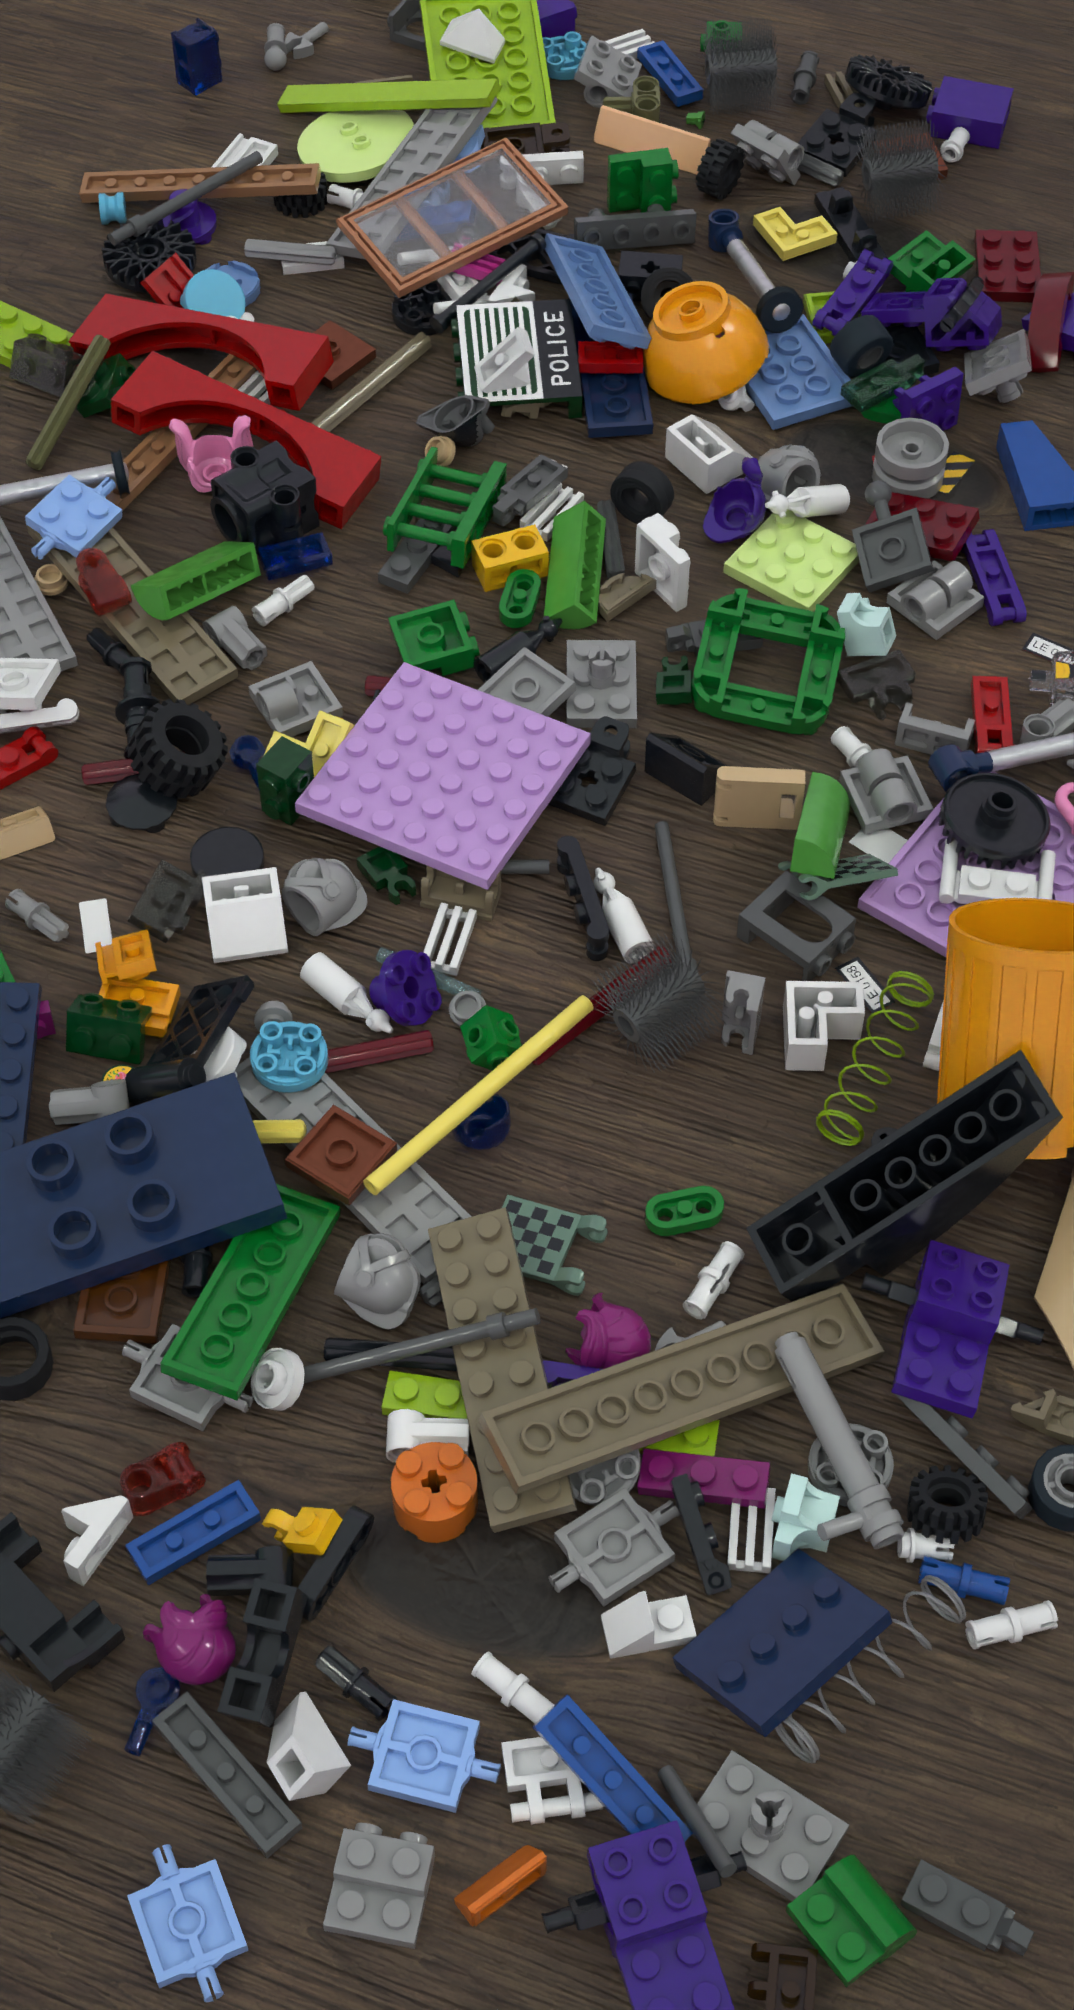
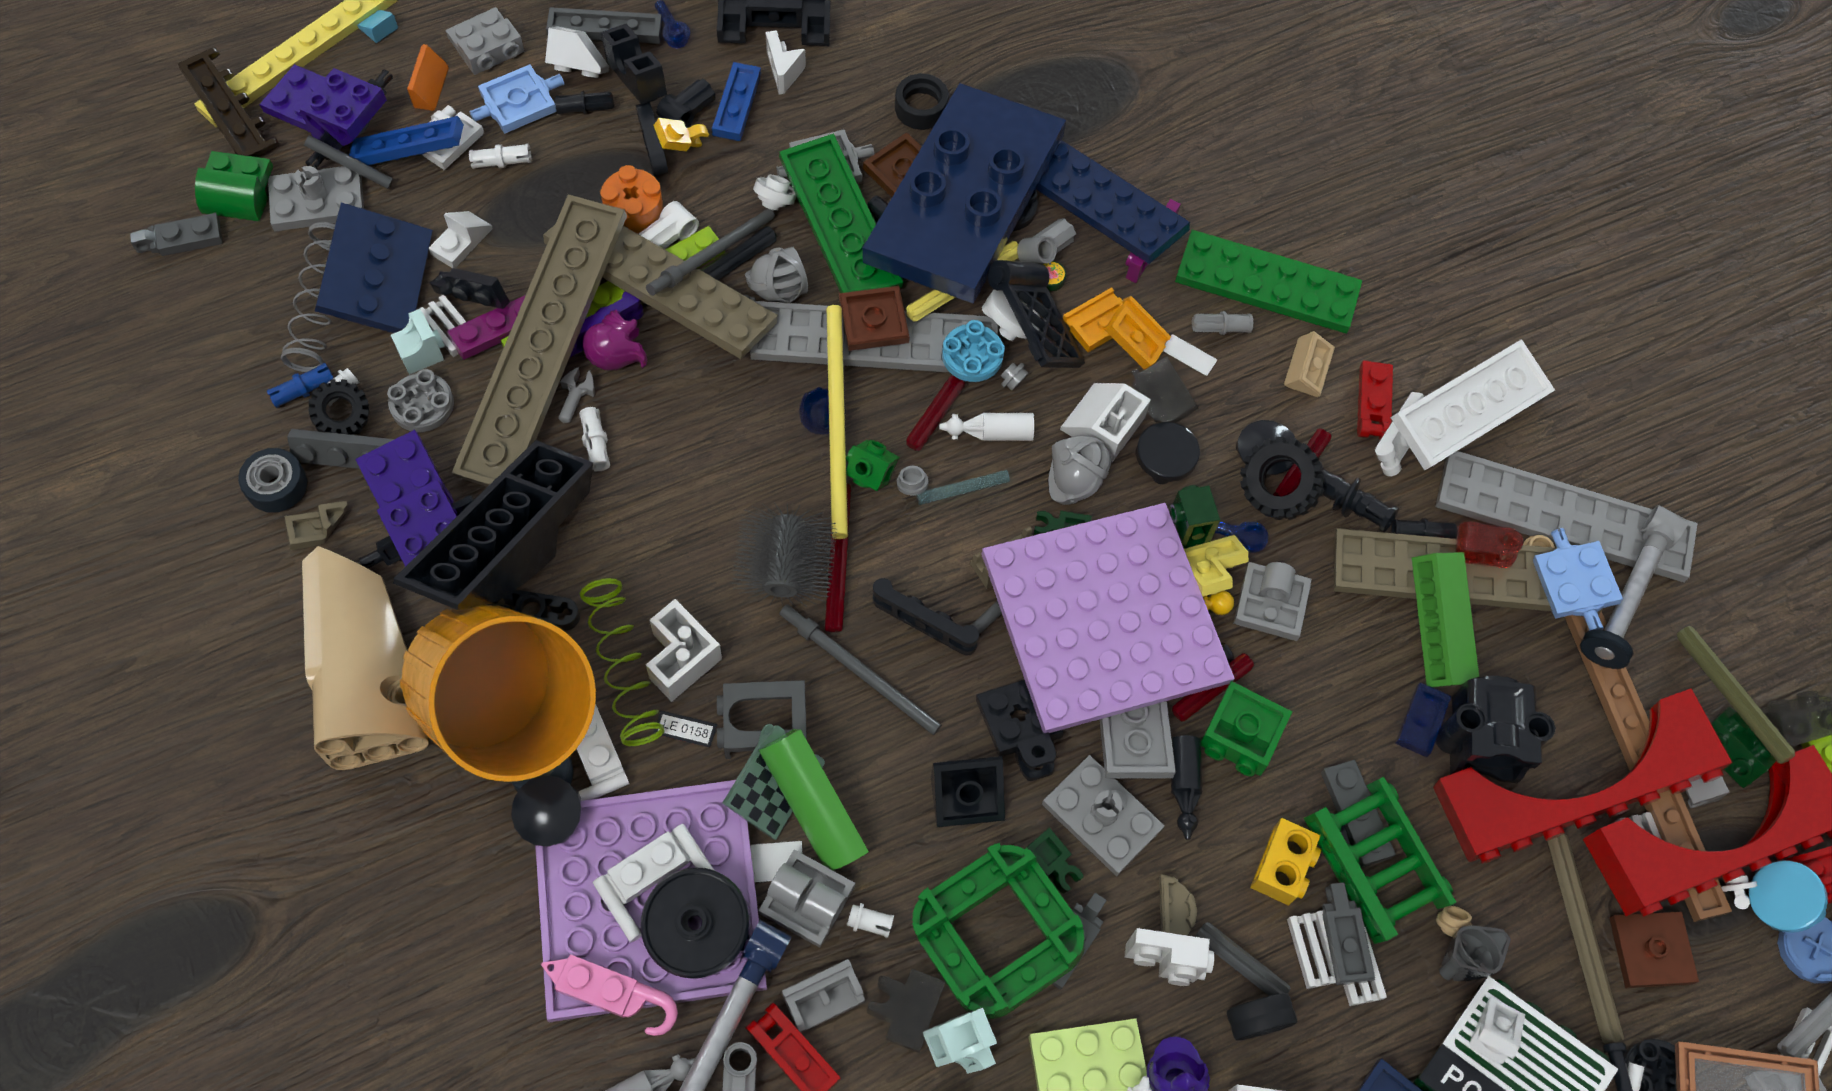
camera: 130 degrees right, 10 degrees up
(107, 1028) = (1097, 290): dark green bracket -> none
(163, 1476) = (779, 106): clear red piece -> none
(193, 1645) = (678, 48): magenta hair -> none
(209, 454) = (1583, 740): bright pink hair -> none
(232, 633) = (1380, 613): light grey piece -> none
(282, 600) = (1384, 676): white axle -> none
(406, 988) = (955, 450): dark purple plate -> none
(455, 915) = (965, 500): white tile -> none
(519, 598) = (1238, 833): green plate -> none
(544, 1240) = (720, 381): sand green flag -> none
(575, 567) = (1231, 899): bright green brick -> none
(614, 1546) = (512, 252): light grey plate -> none
(622, 918) = (885, 626): white wheel -> none
(682, 1209) = (647, 464): green plate -> none
(744, 1004) = (734, 612): light grey hinge -> none
(754, 797) = (882, 790): tan container -> none
(867, 1498) = (386, 371): light grey cylinder -> none
(1011, 1624) = (254, 382): white pin -> none

